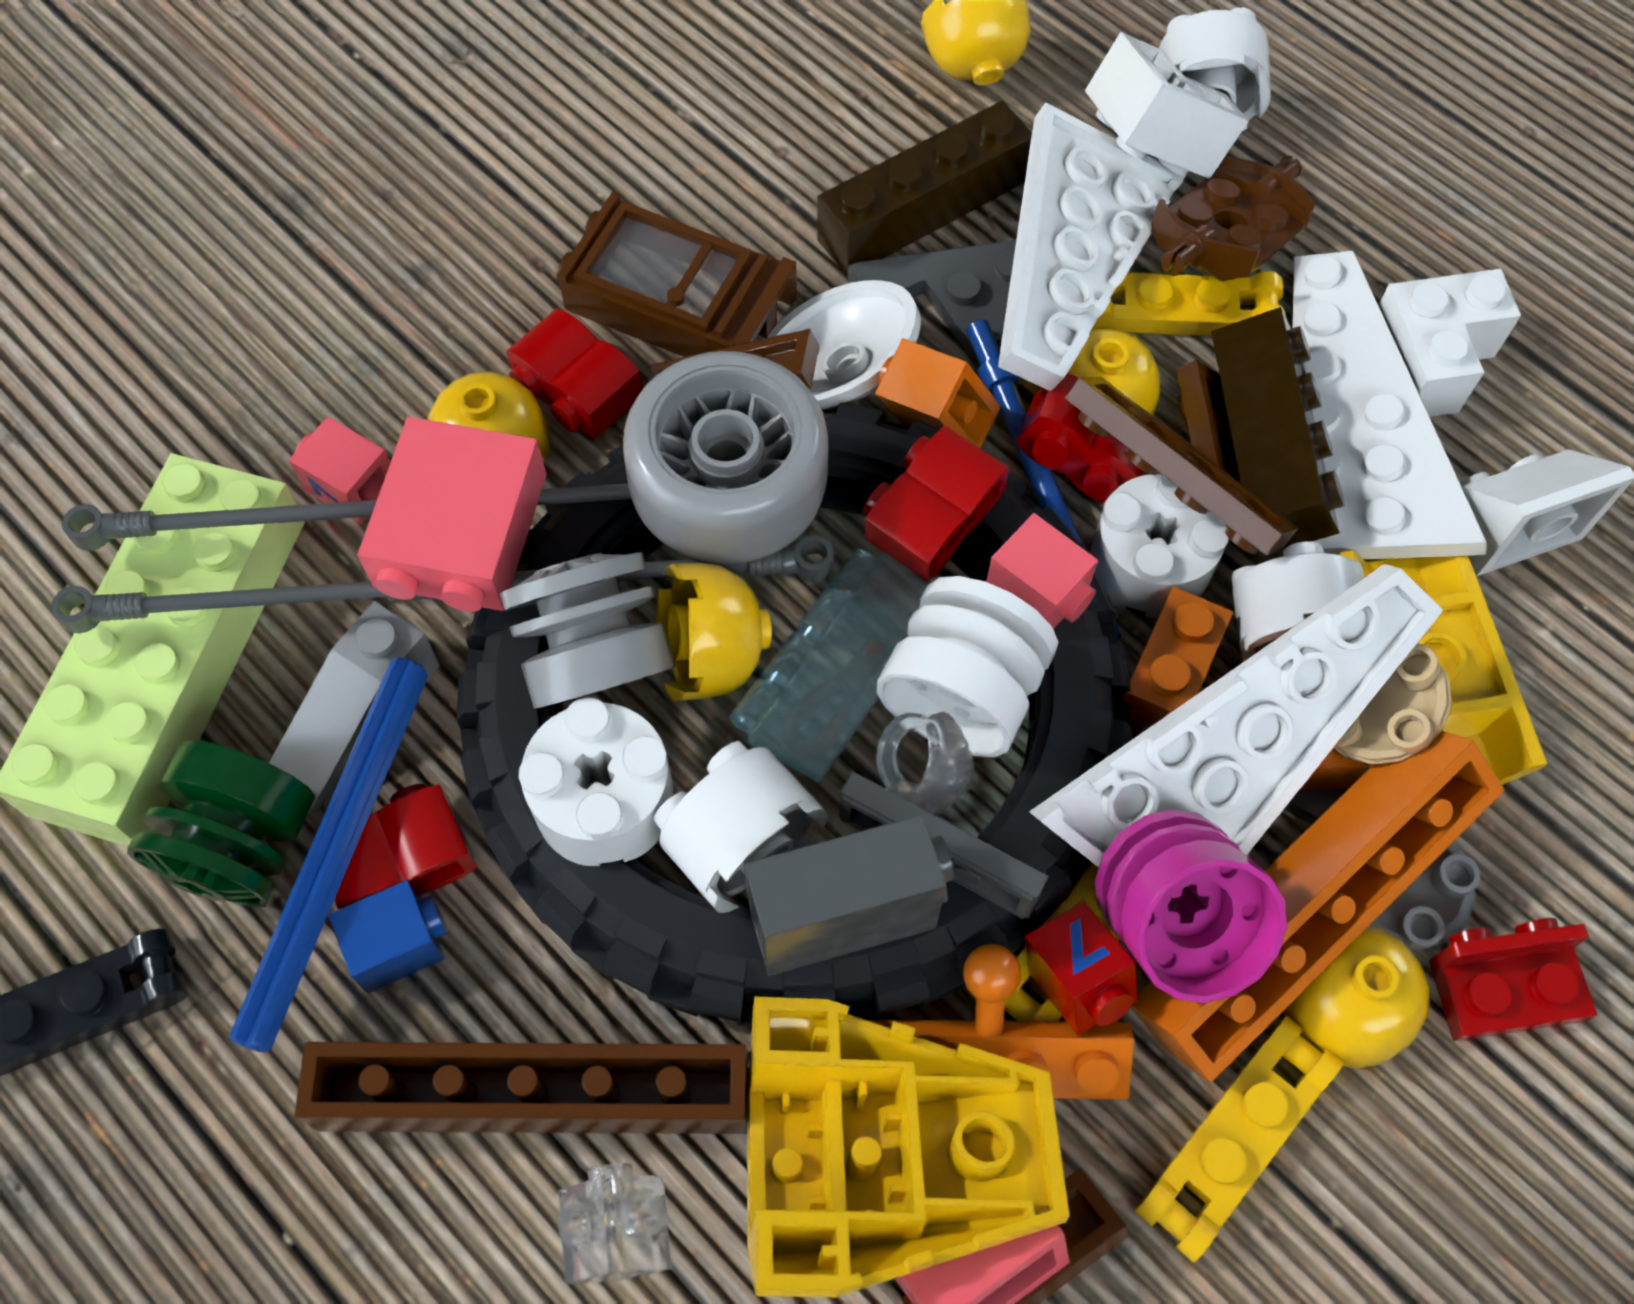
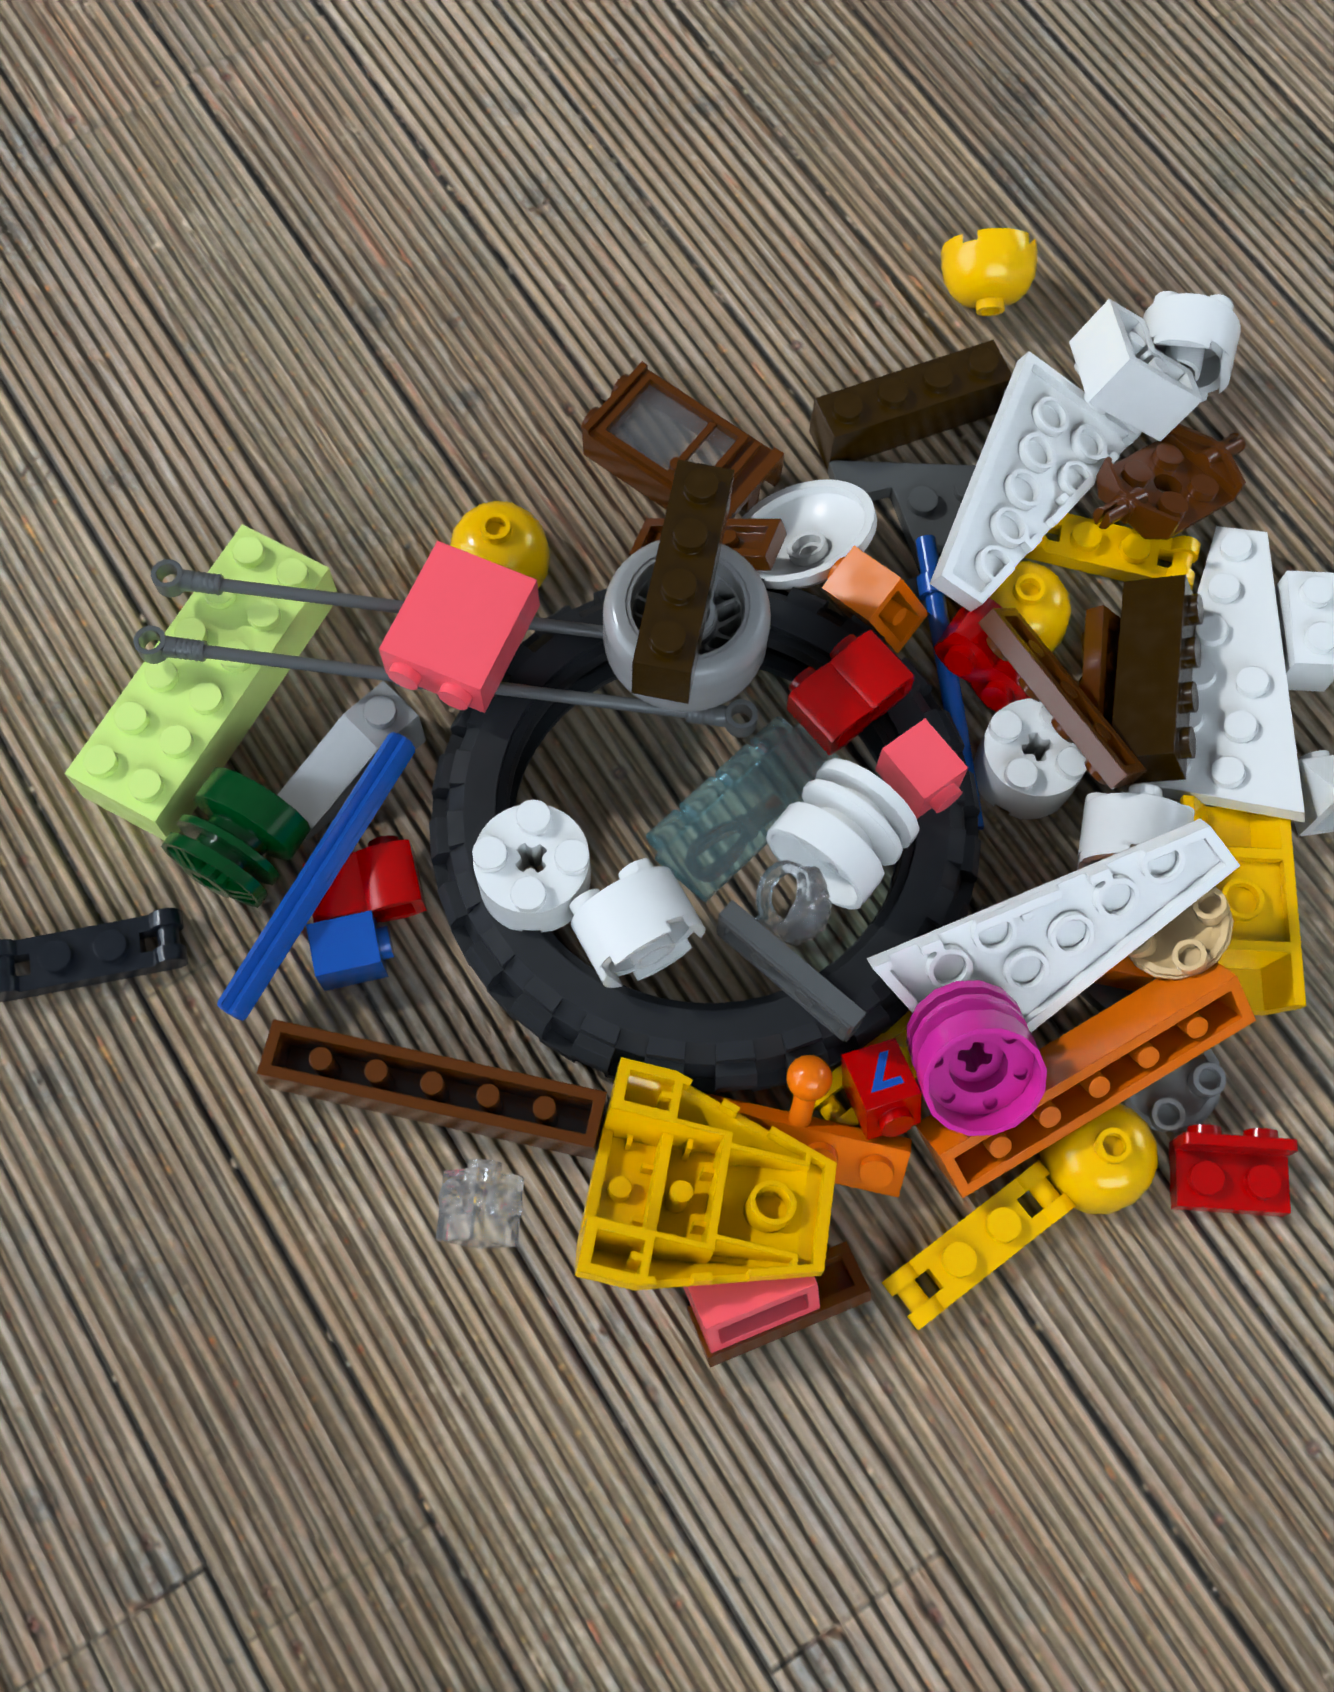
camera: 10 degrees right, 5 degrees up
(340, 465) = (376, 560): coral brick -> none
(575, 373) = (580, 515): red brick -> none
(587, 628) = (547, 744): light grey wheel -> none
(711, 630) = (644, 762): yellow cylinder -> none
(713, 402) = (682, 582): none -> dark brown brick
(847, 893) = (707, 994): dark grey brick -> none
(1175, 657) = (1021, 855): orange brick -> none

